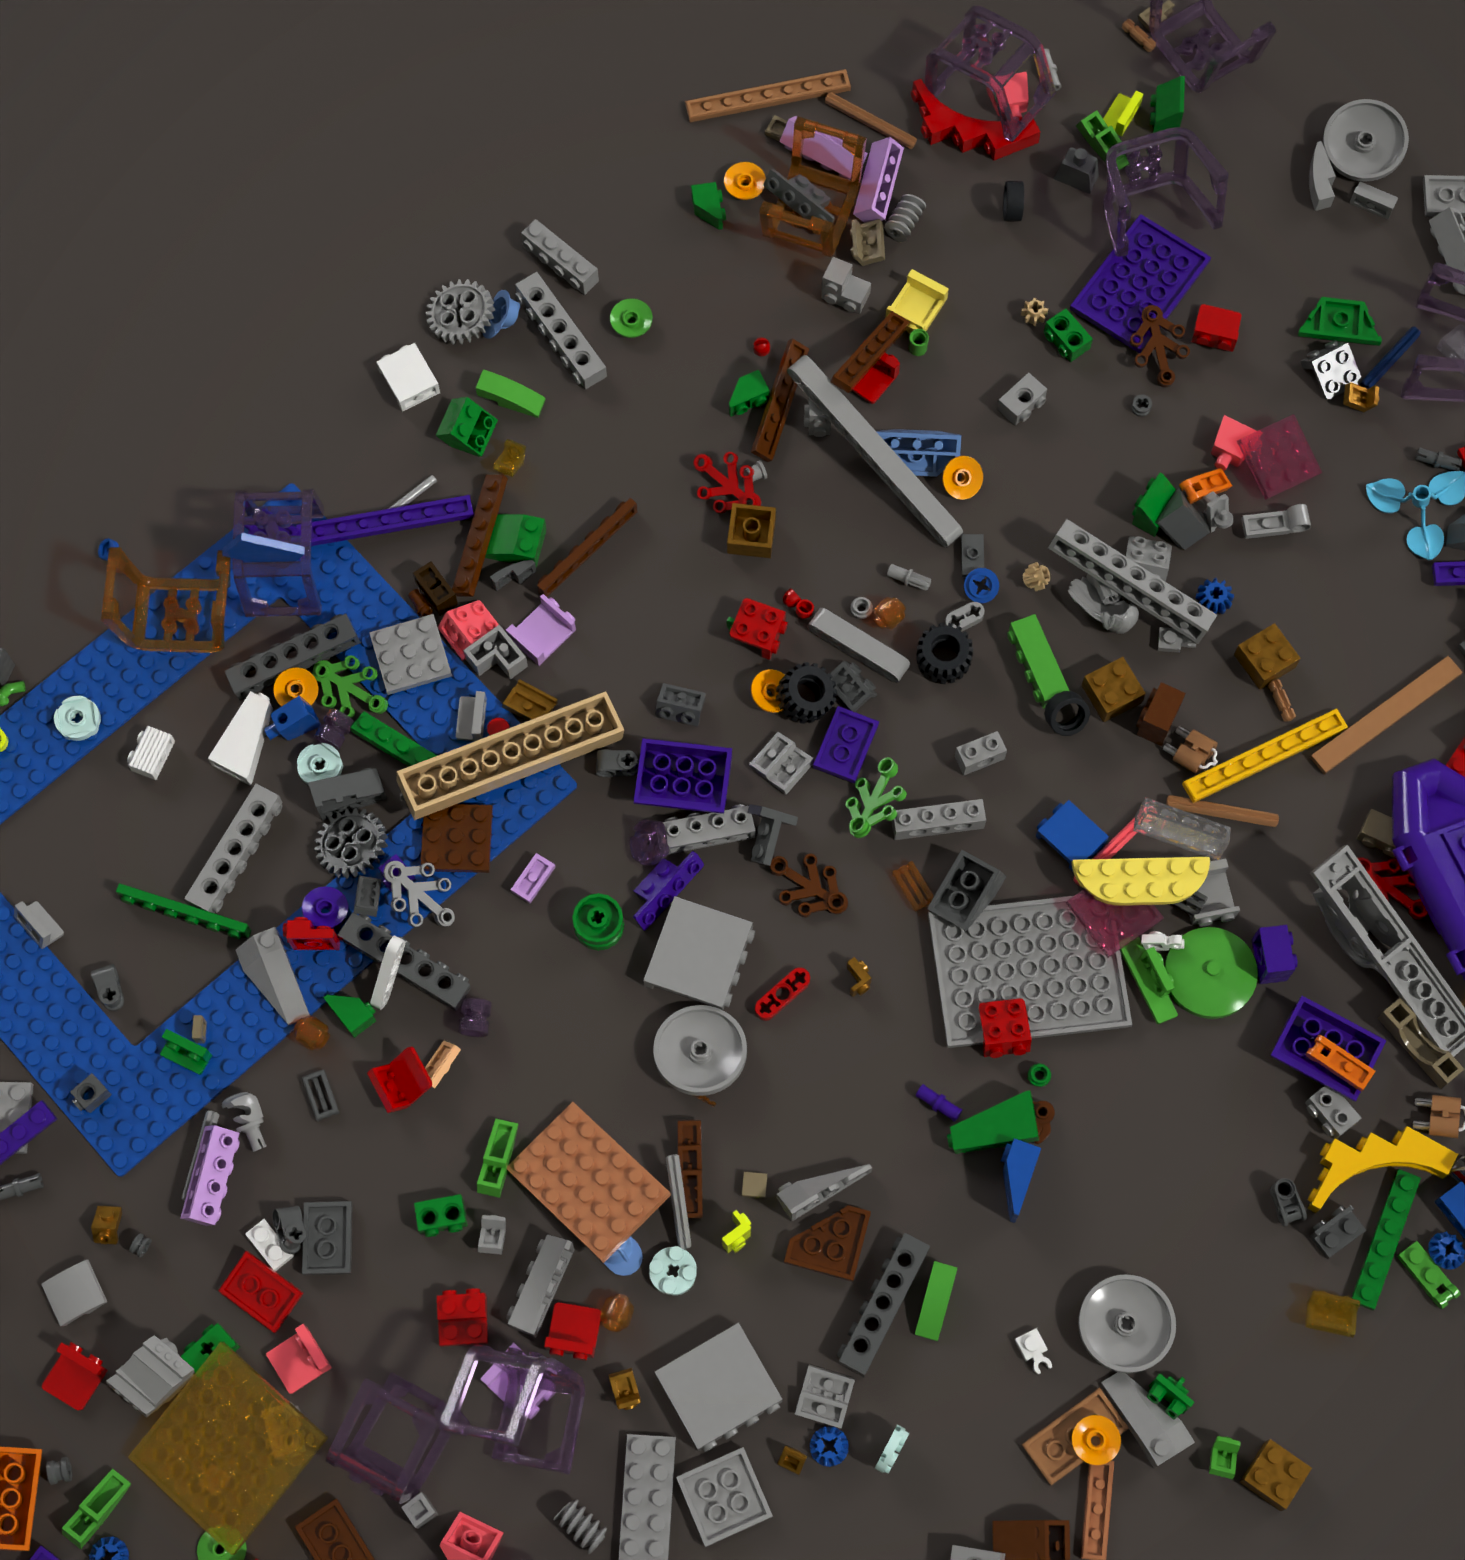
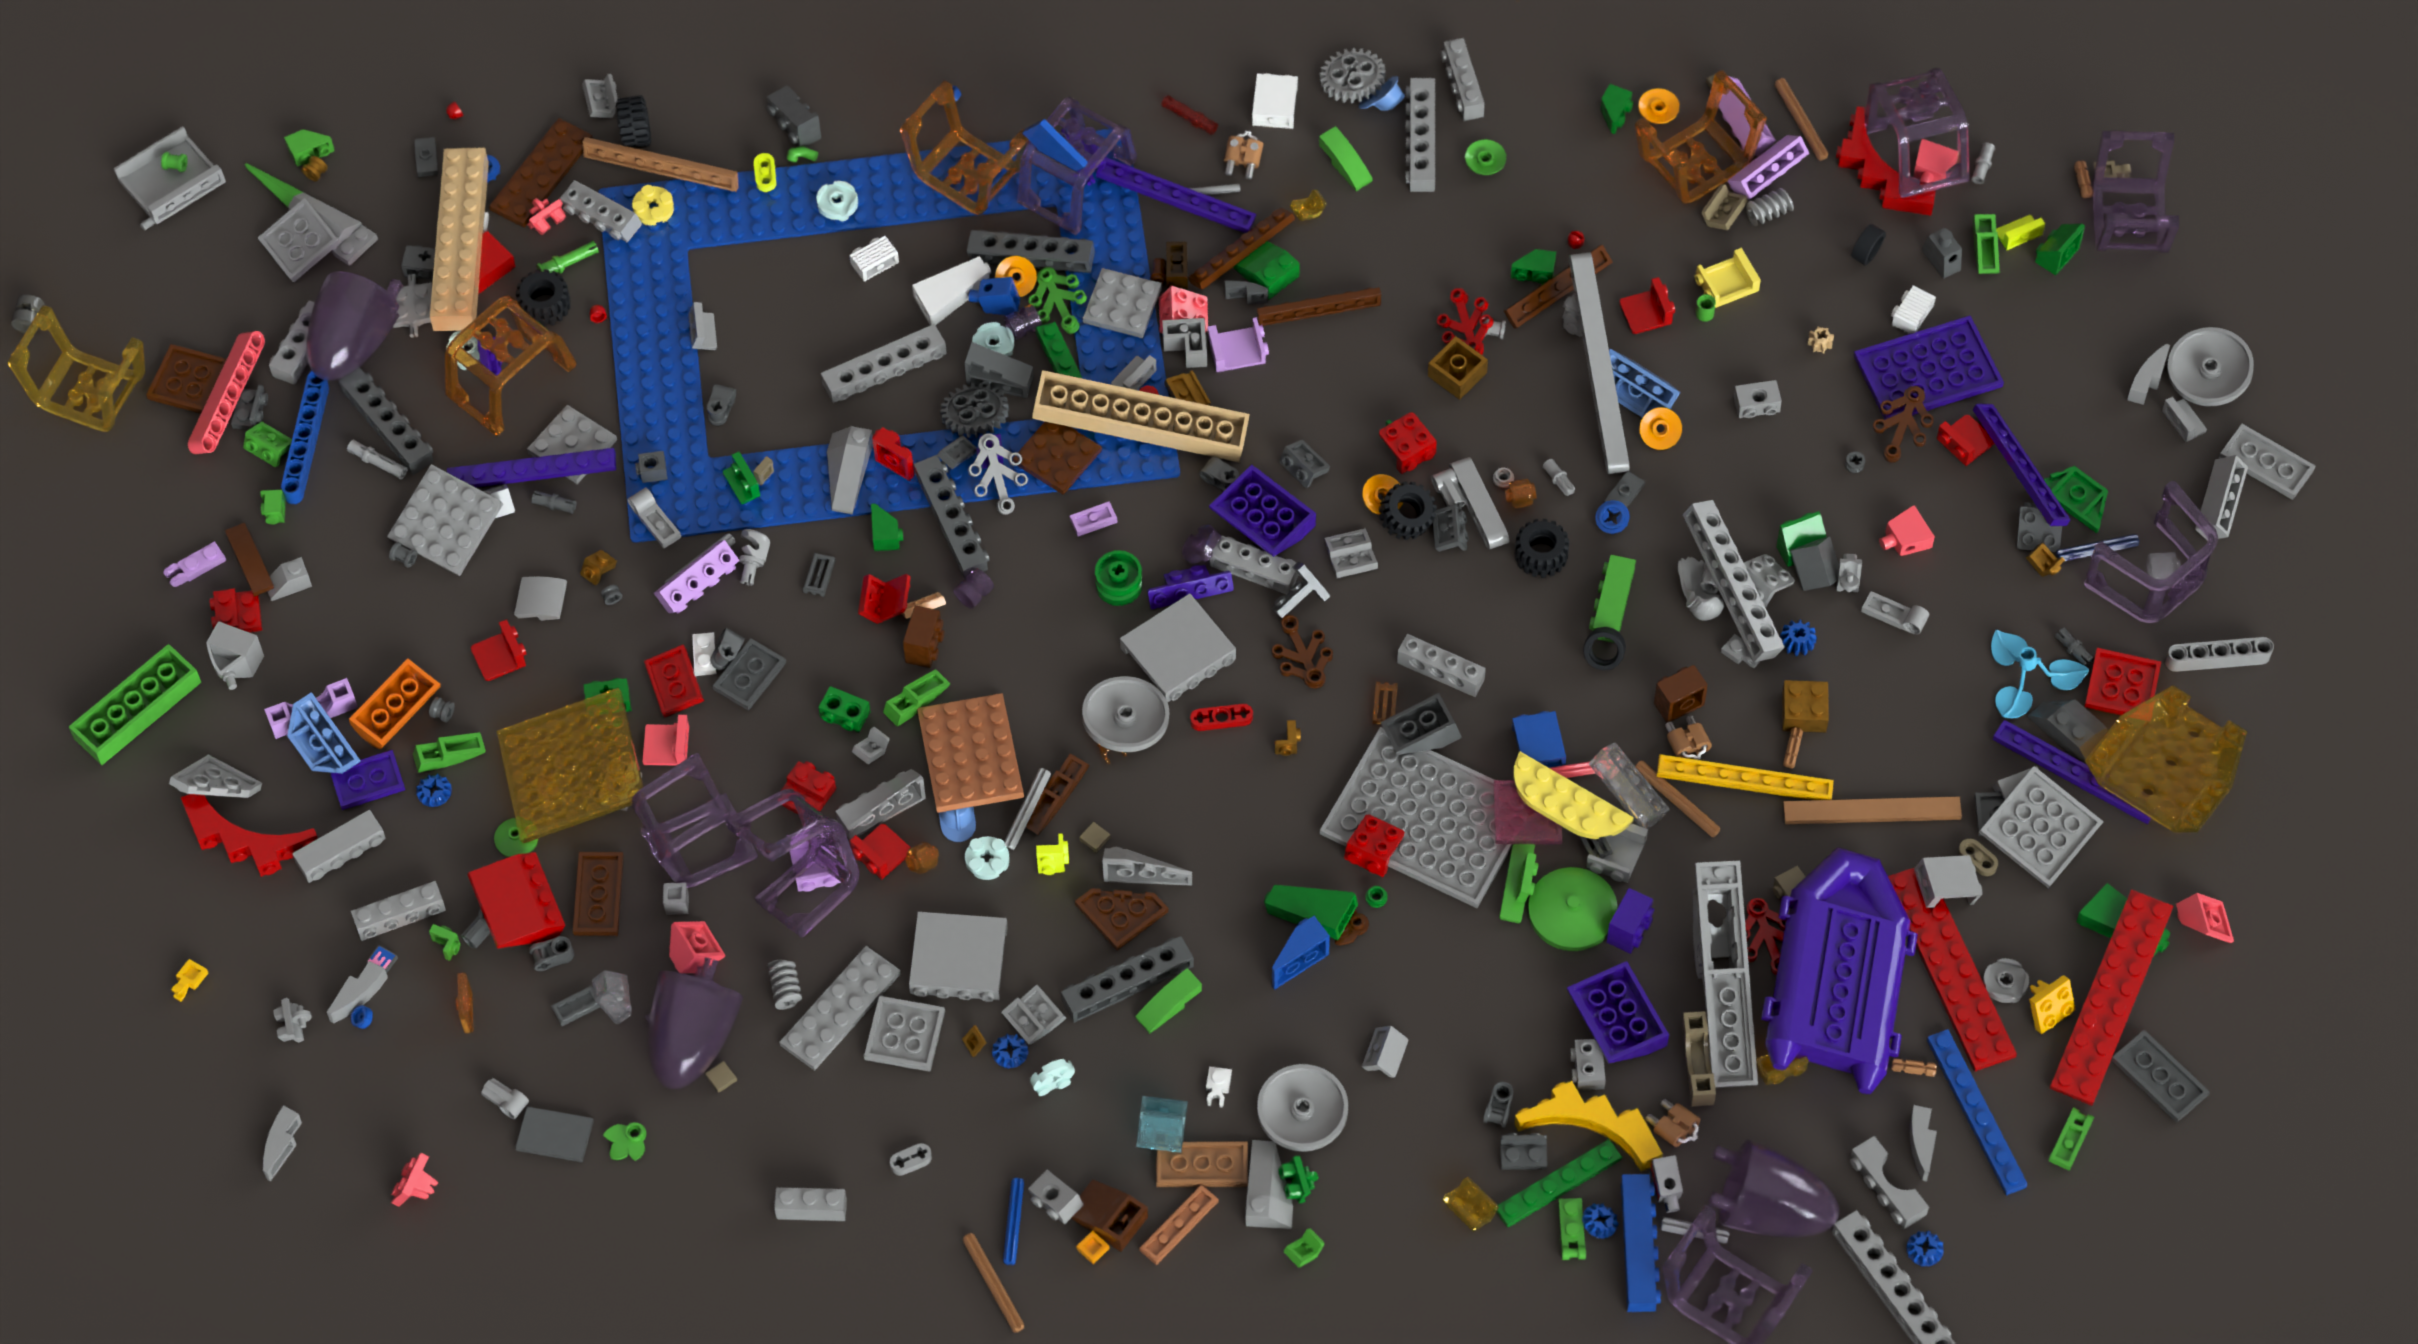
camera: 35 degrees right, 10 degrees down
(128, 1143) = (654, 518): none -> light grey plate
(151, 1376) = (552, 681): light grey slope -> none
(191, 914) = (810, 379): green plate -> none
(311, 1033) = (844, 525): clear orange head -> none
(325, 898) = (920, 435): dark purple dish -> none
(341, 436) = (1194, 117): none -> clear red pin
(387, 972) = (930, 512): white beam -> none
(415, 443) = (1243, 152): none -> medium nougat piece
(463, 1094) = (923, 637): none -> reddish brown brick
(466, 426) = (1293, 163): green slope -> none
(625, 1389) = (888, 913): pearl gold bracket -> none
(767, 95) = (1731, 53): medium nougat tile -> none
(791, 598) = (1452, 438): red hinge -> none
(799, 195) = (1694, 143): dark grey bracket -> none
(806, 609) = (1459, 451): red hinge -> none
(818, 645) = (1447, 484): none -> light grey piece
(843, 288) = (1674, 230): light grey brick -> none
(846, 744) = (1411, 569): dark purple plate -> none
(861, 824) = (1400, 617): bright green plant -> none
(870, 352) = (1651, 285): reddish brown plate -> none
(938, 1102) = (1281, 866): dark purple pin -> none
(963, 612) = (1582, 532): light grey beam -> none
(980, 753) = (1513, 638): light grey brick -> none
(1019, 1427) = (1161, 1124): none -> clear light blue slope
(1036, 576) = (1662, 536): tan gear -> none
(1072, 332) = (1838, 373): green brick -> none
(1090, 237) = (1913, 309): none -> white brick
(1108, 1436) = (1217, 1161): light orange dish -> none
(1113, 689) = (1657, 654): pearl gold brick -> none
(1137, 163) = (1958, 260): clear purple windscreen -> none
(1153, 1217) = (1385, 1051): none -> light grey panel
(1161, 941) = (1547, 860): white plate -> none
(1205, 484) = (1867, 551): orange plate -> none
(1275, 1475) = (1334, 1285): pearl gold brick -> none
(1279, 456) = (1936, 564): clear pink plate -> none
(1285, 323) = (2021, 465): none -> dark purple plate
(1340, 1063) = (1616, 1025): orange plate -> none

